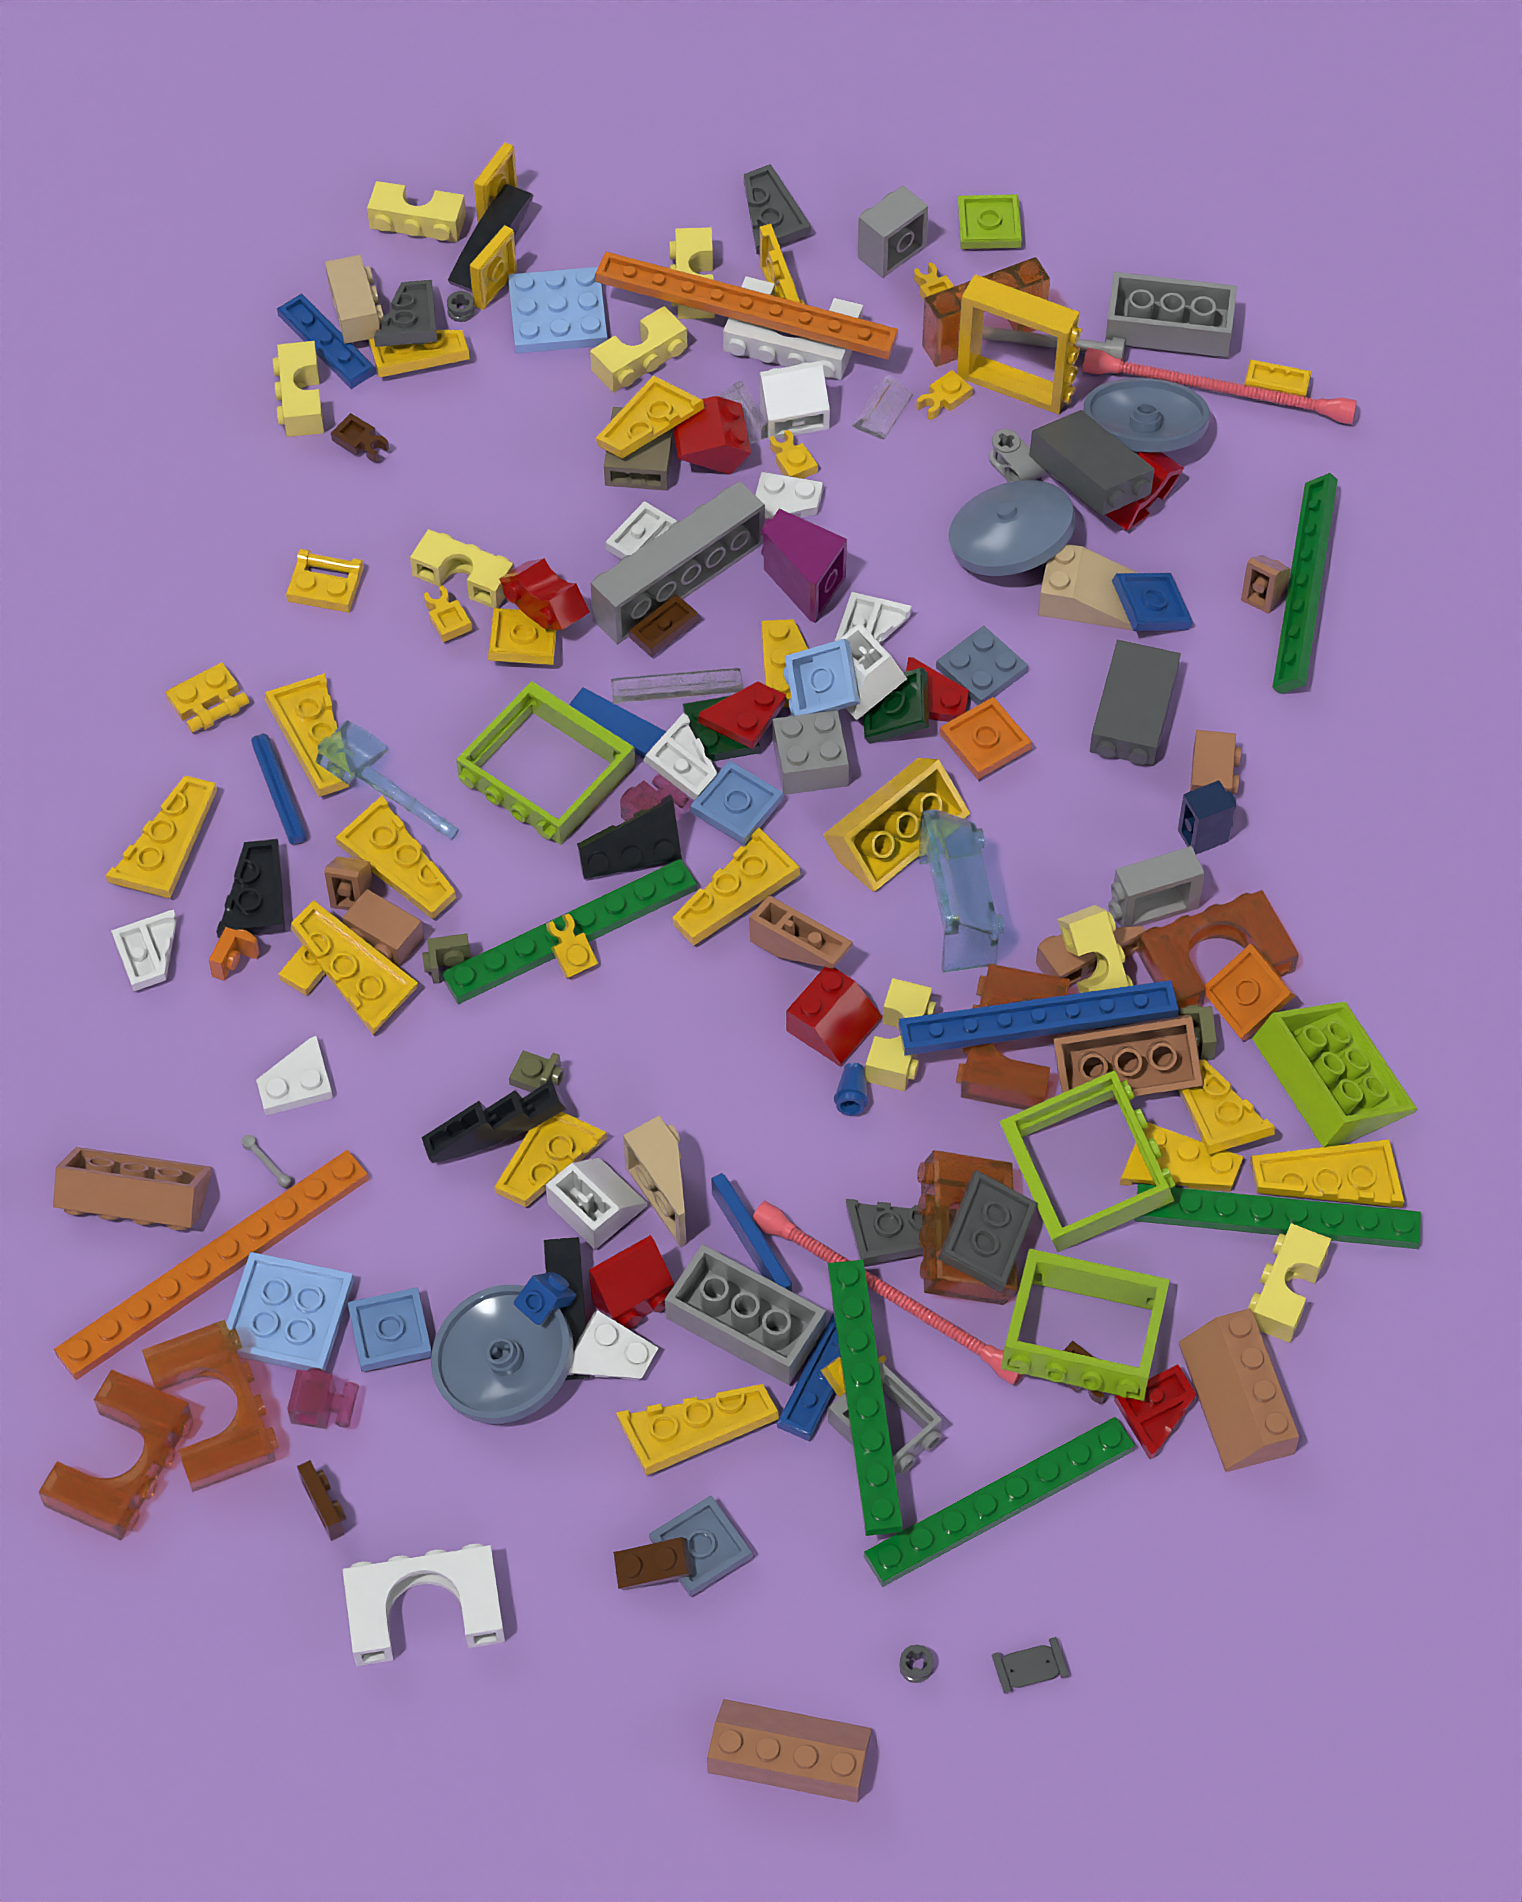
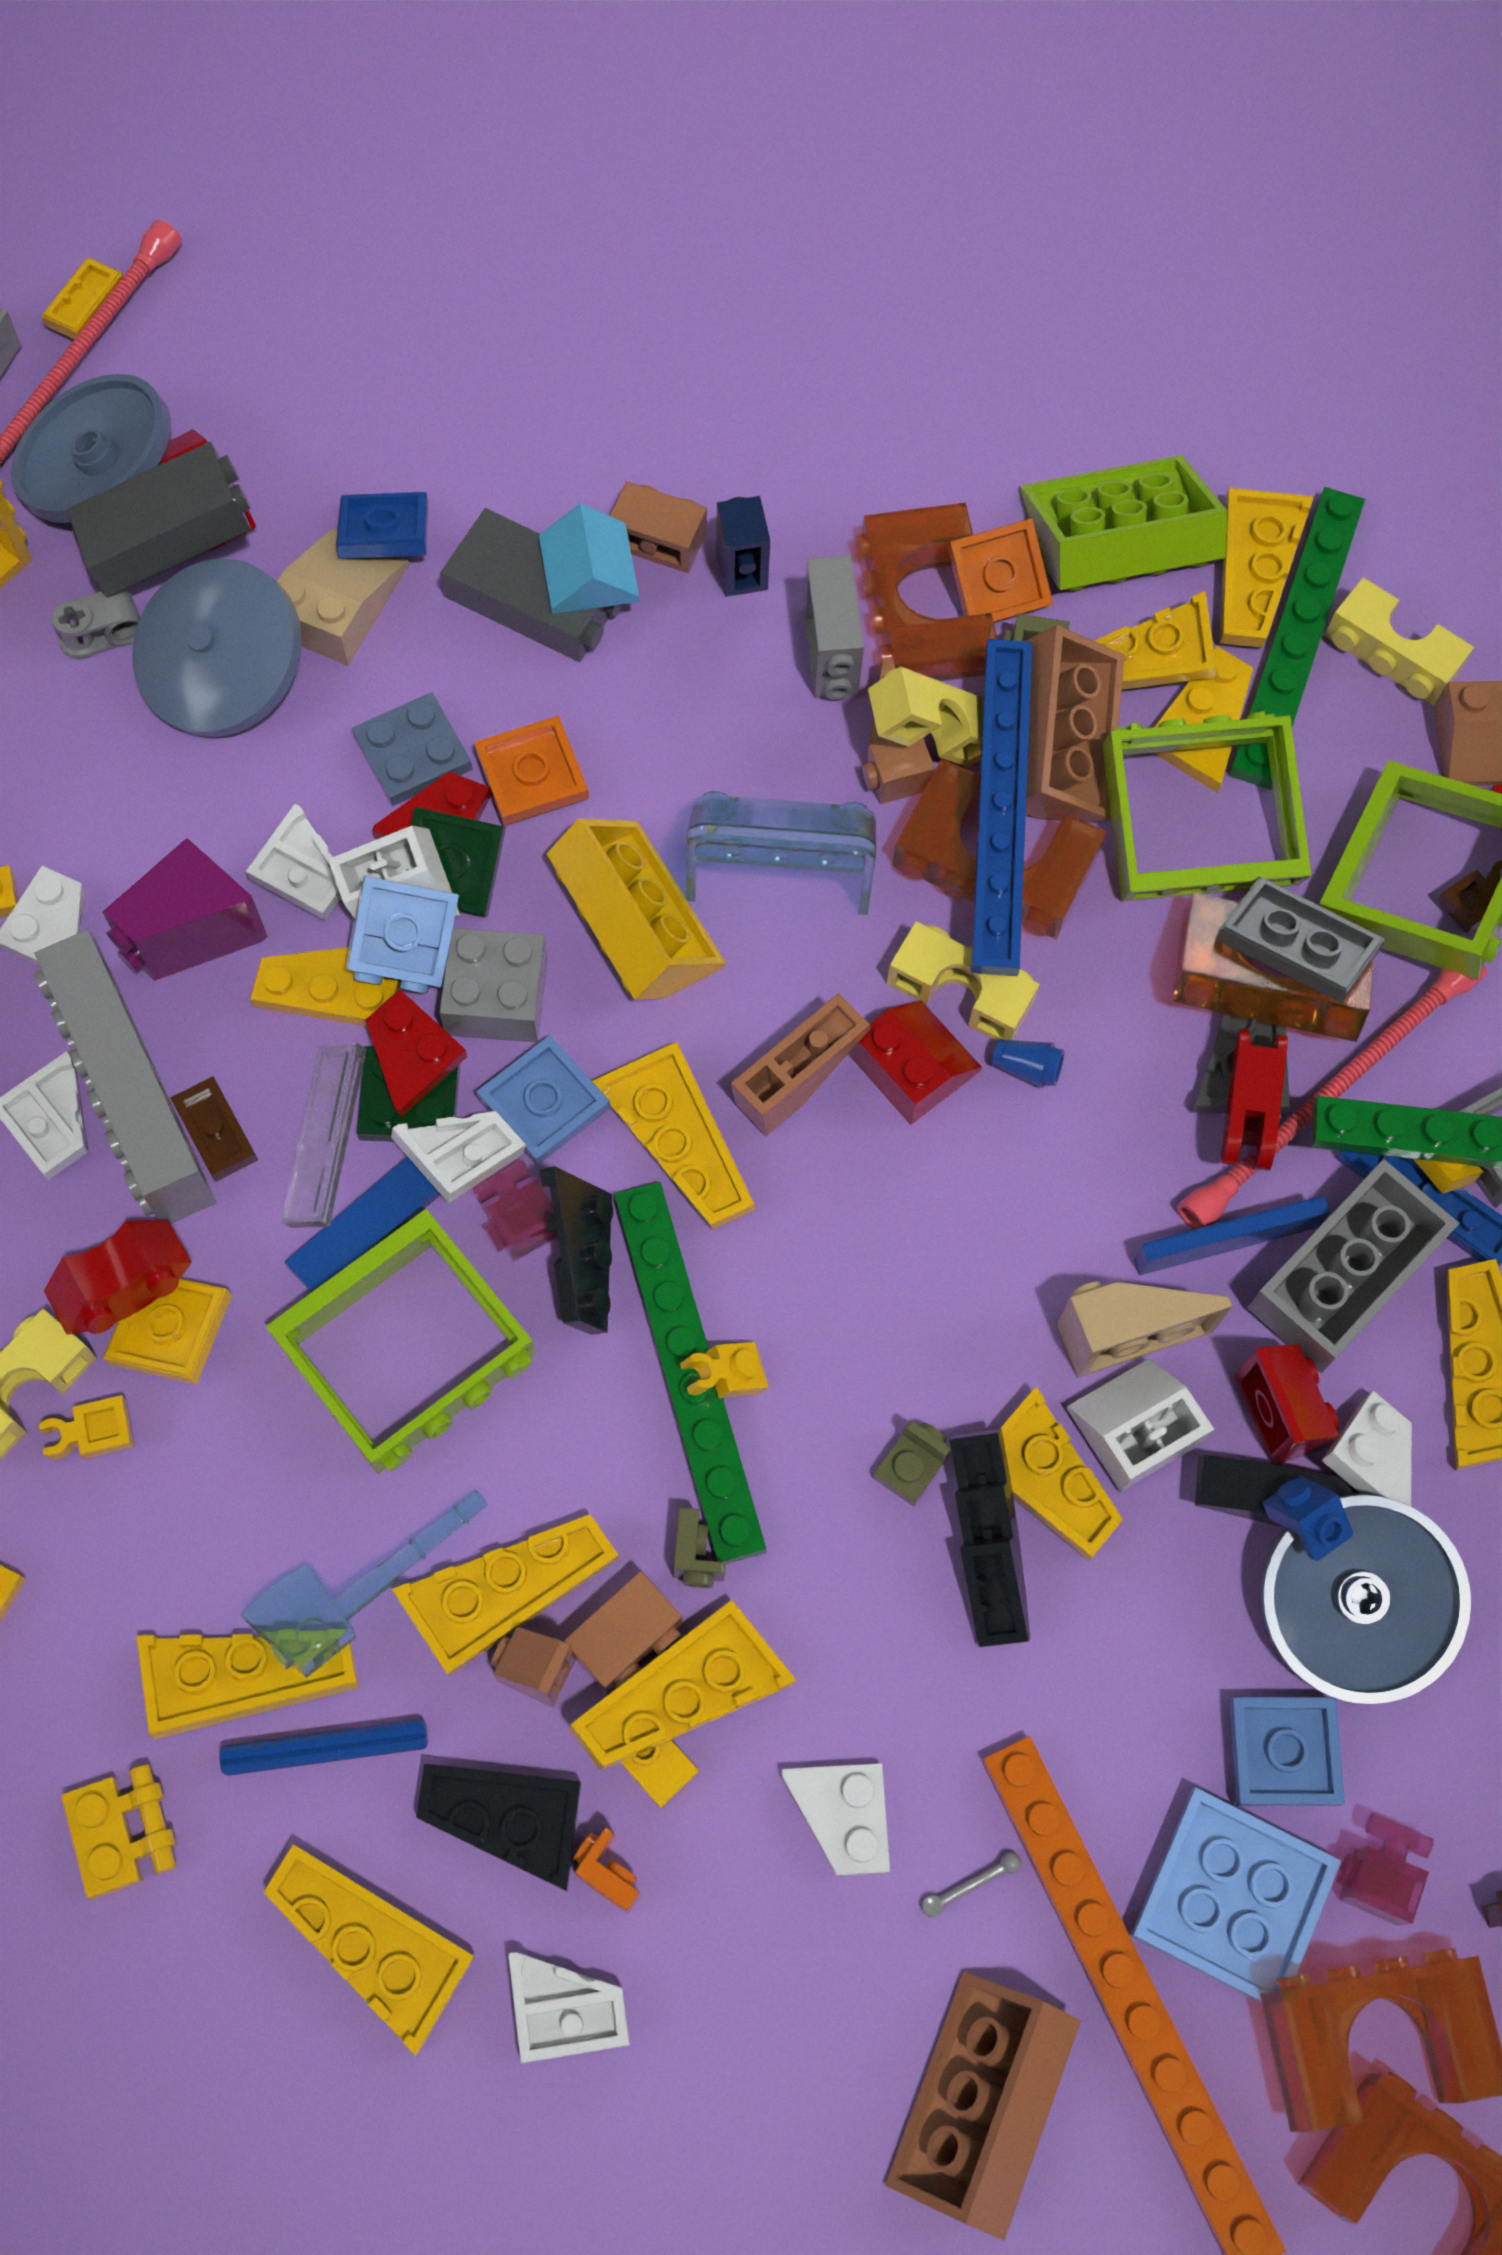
camera: 80 degrees left, 10 degrees up
(852, 1225) = (1254, 1100): none -> red piece
(1153, 724) = (587, 561): none -> medium azure slope
(1264, 582) = (401, 392): nougat slope -> none
(1305, 584) = (411, 354): green plate -> none

